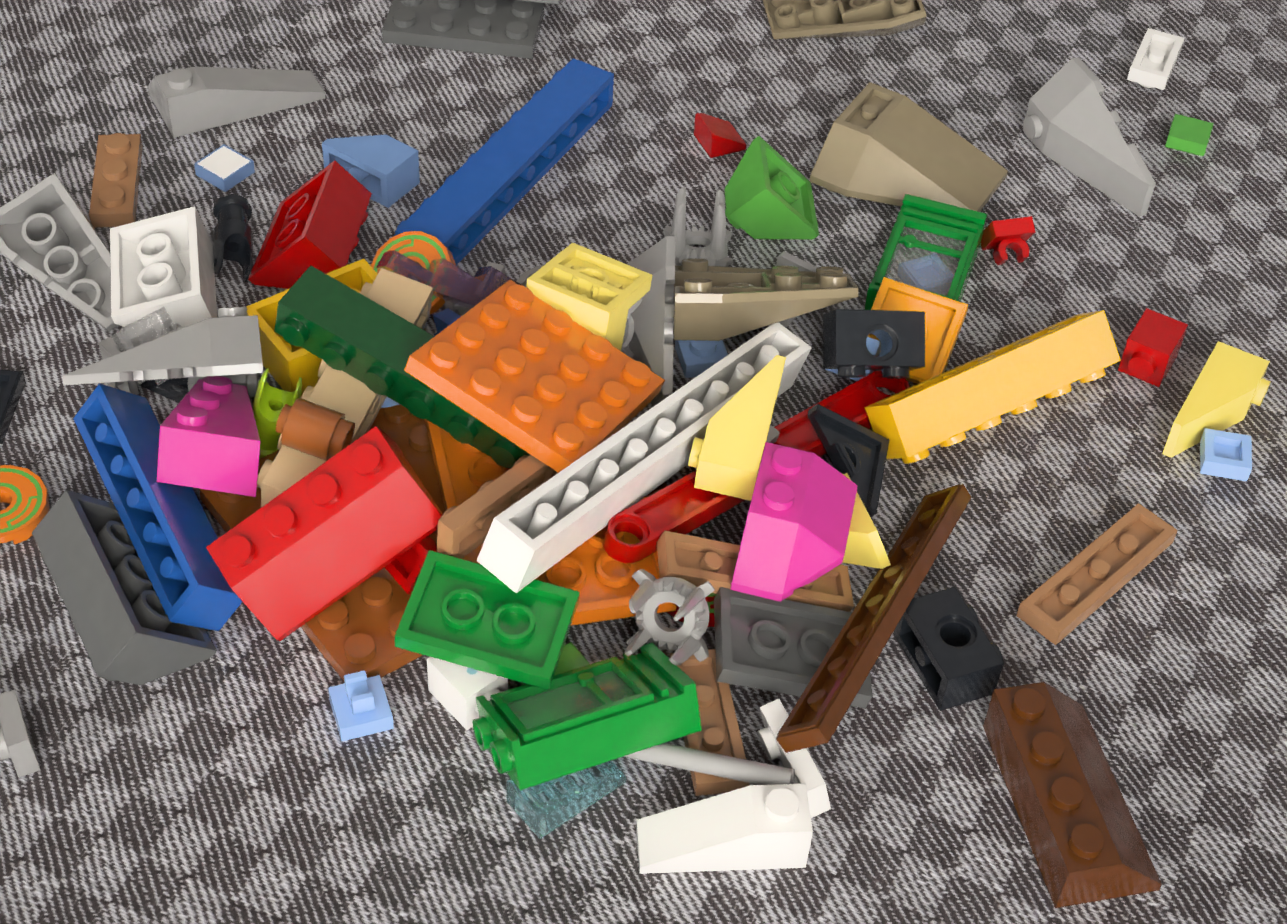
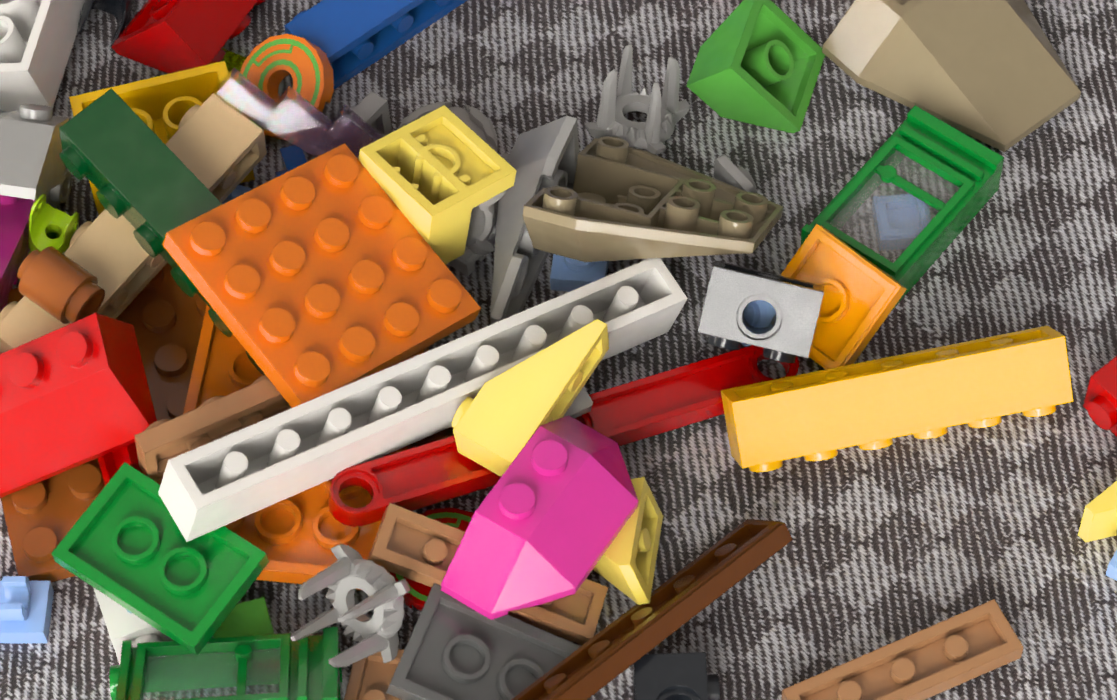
camera: 25 degrees right, 10 degrees up
(853, 451) = (682, 450): black tile -> none
(1008, 234) = (1028, 188): red tile -> none

